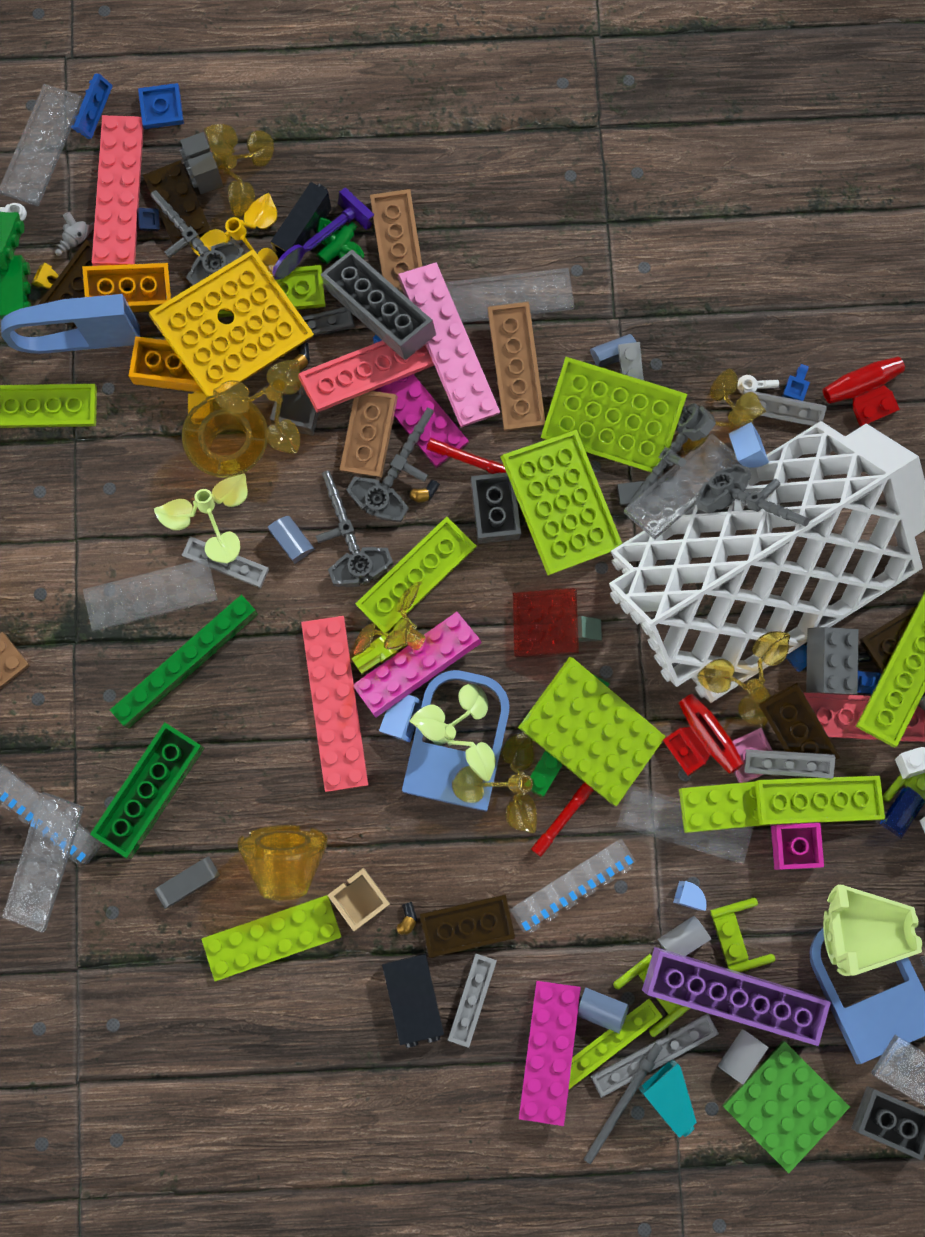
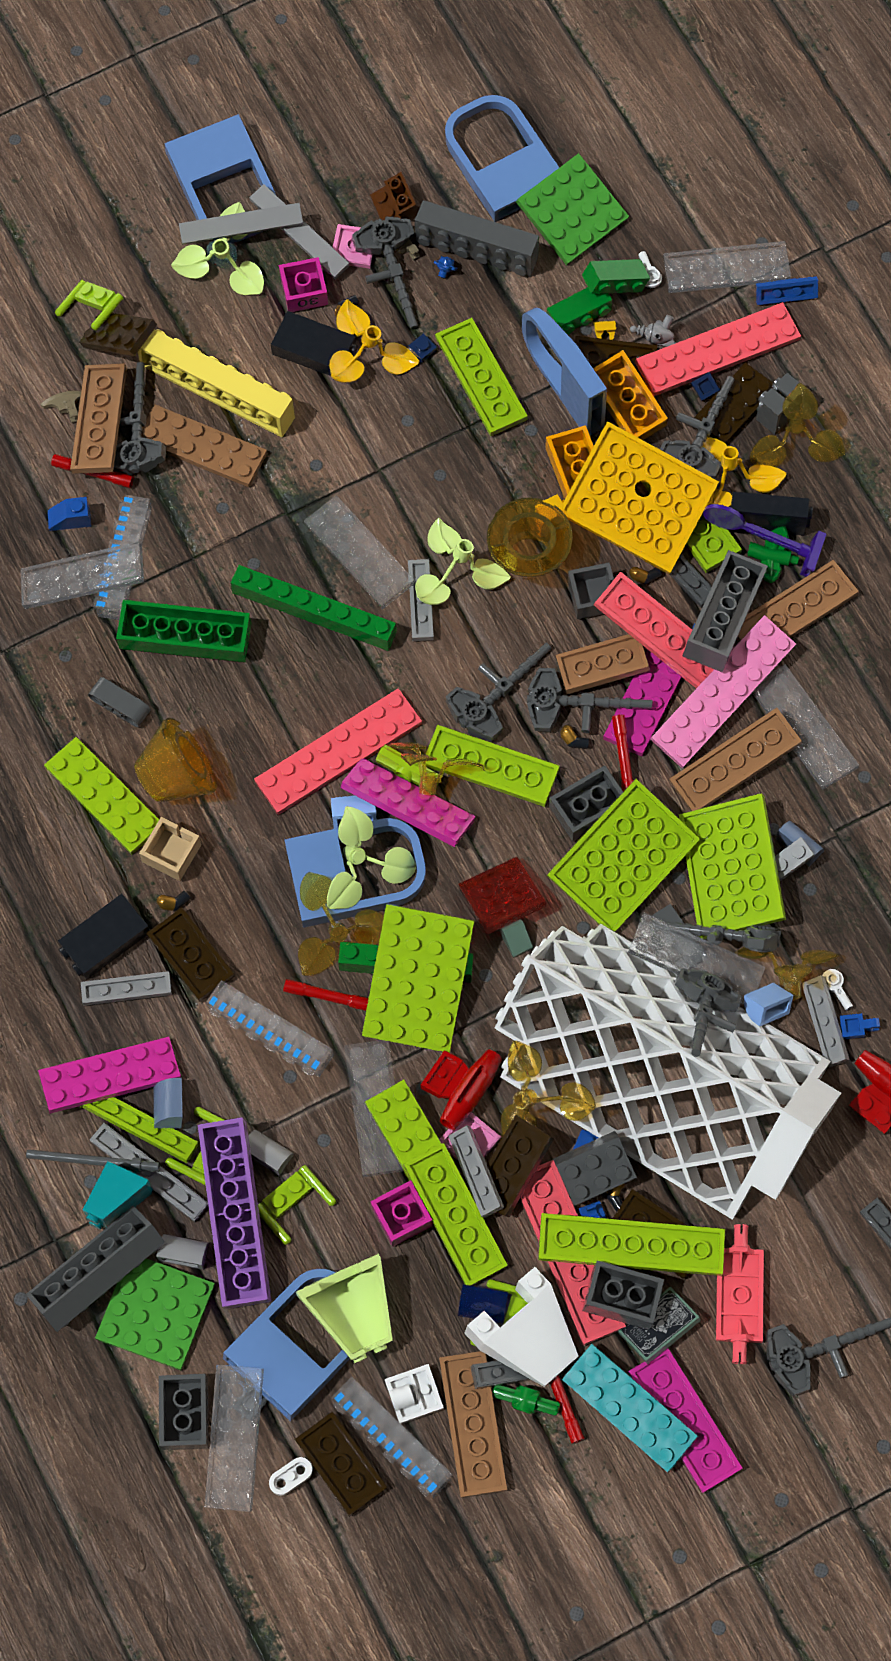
camera: 70 degrees right, 10 degrees down
(161, 106) = (820, 346): blue plate -> none
(283, 380) = (566, 527): clear yellow plant -> none
(291, 538) = (470, 644): sand blue brick -> none
(690, 896) = (307, 1133): light blue brick -> none
(732, 1148) = (95, 1268): none -> dark grey brick

